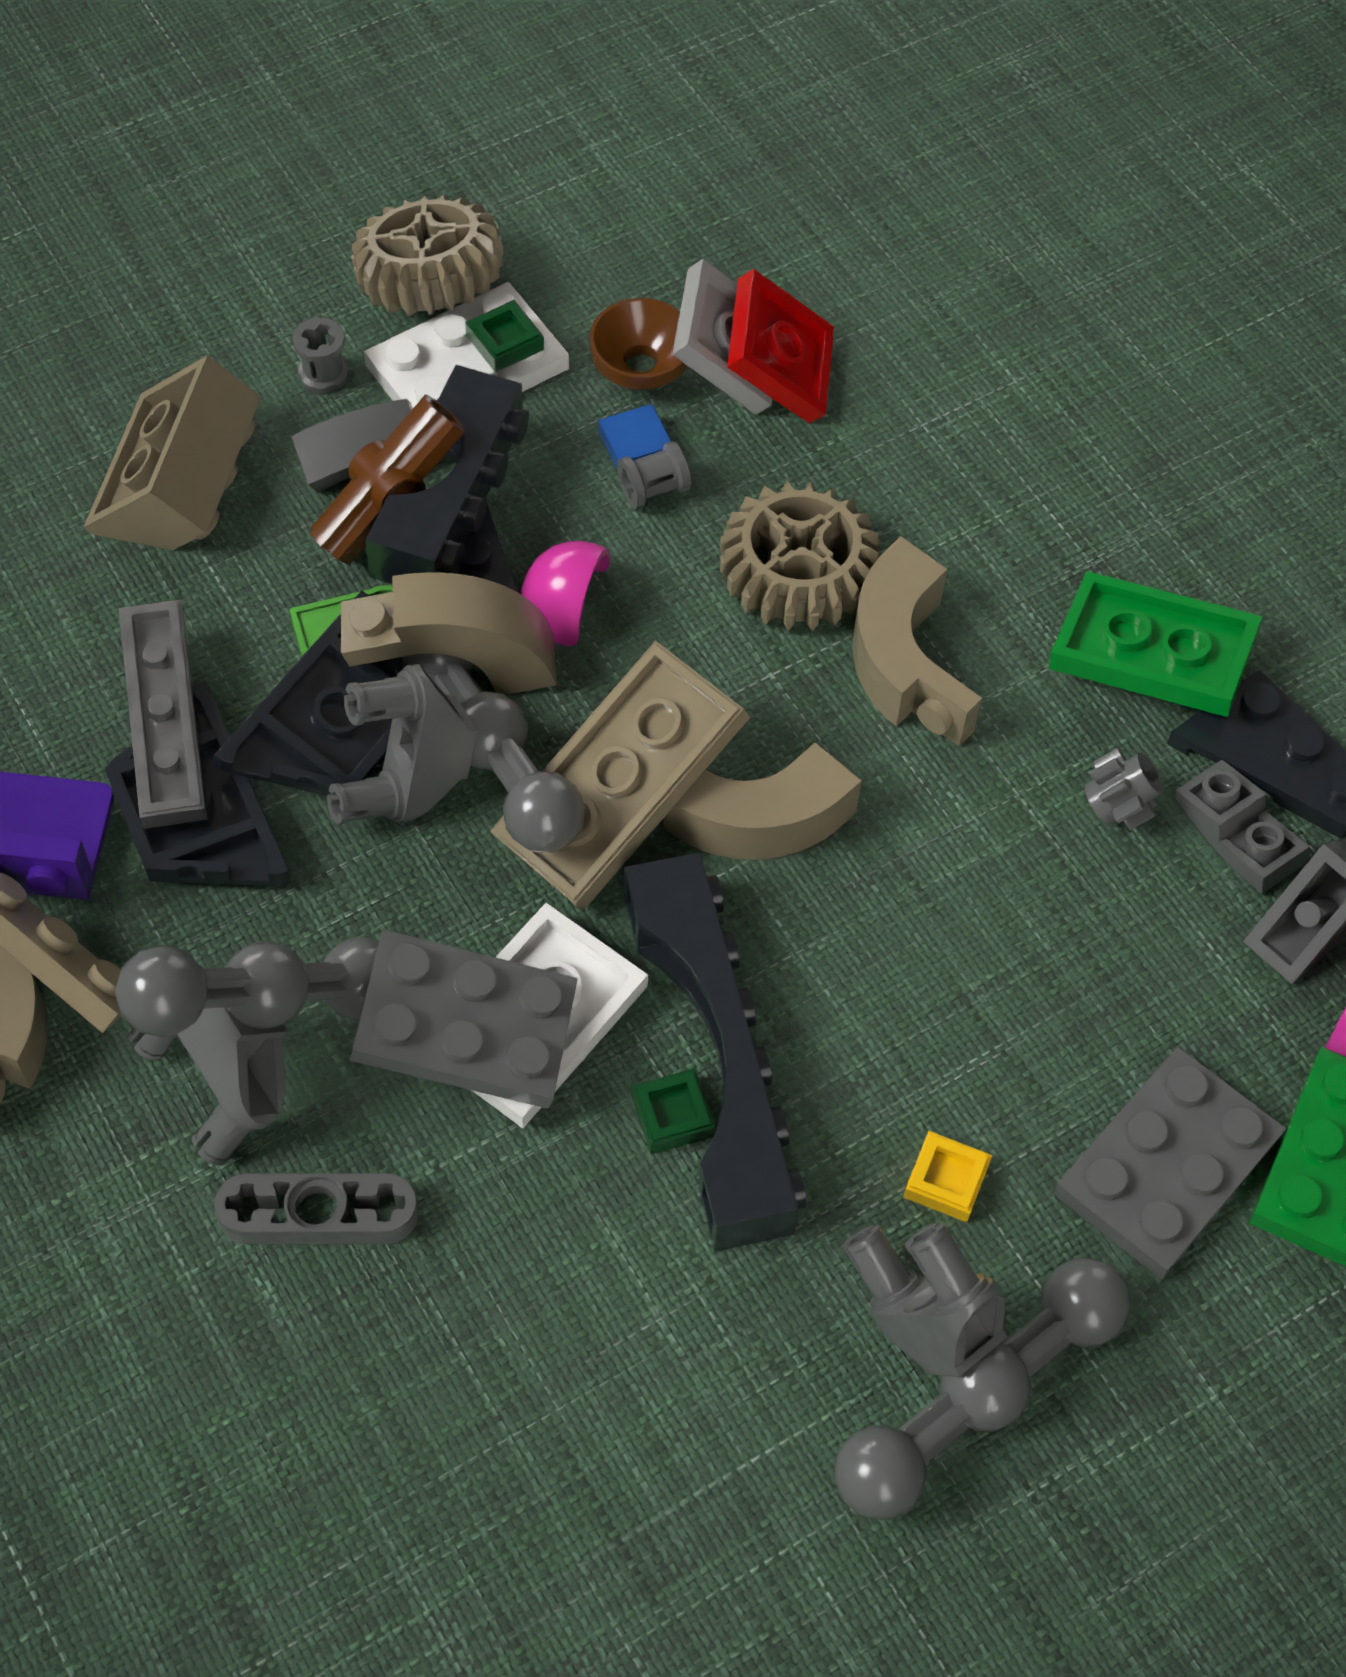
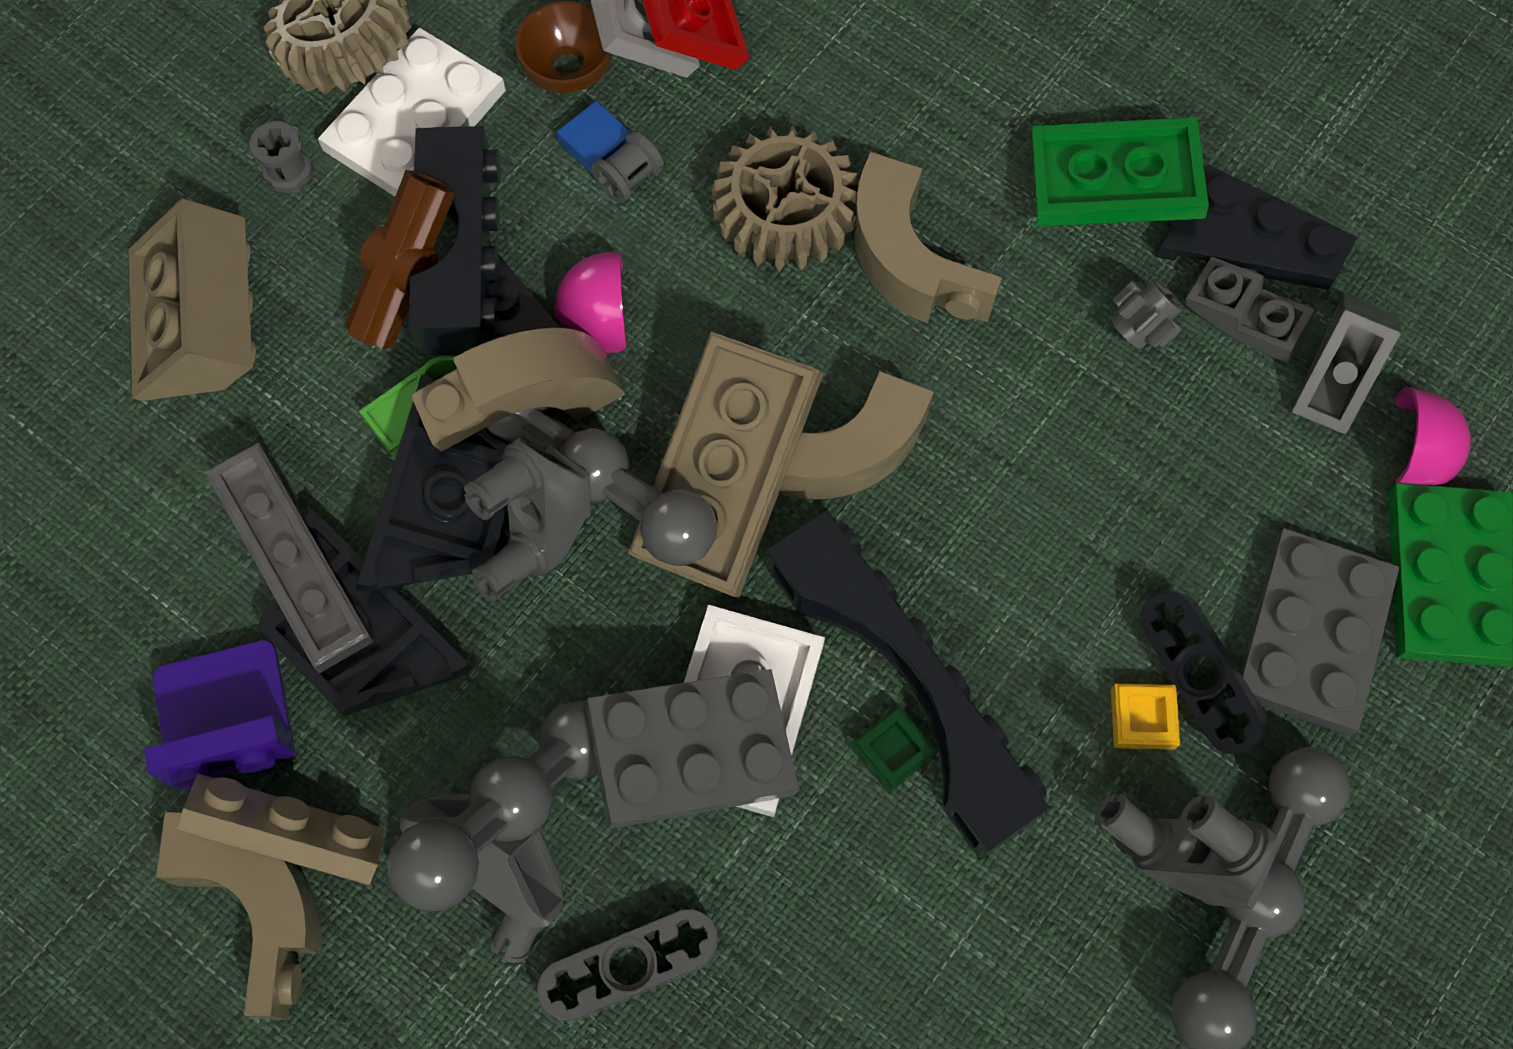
camera: 20 degrees left, 10 degrees up
(331, 445) = (336, 237): dark grey slope -> none
(504, 336) = (441, 82): dark green tile -> none
(1046, 1172) = (1177, 666): none -> black beam

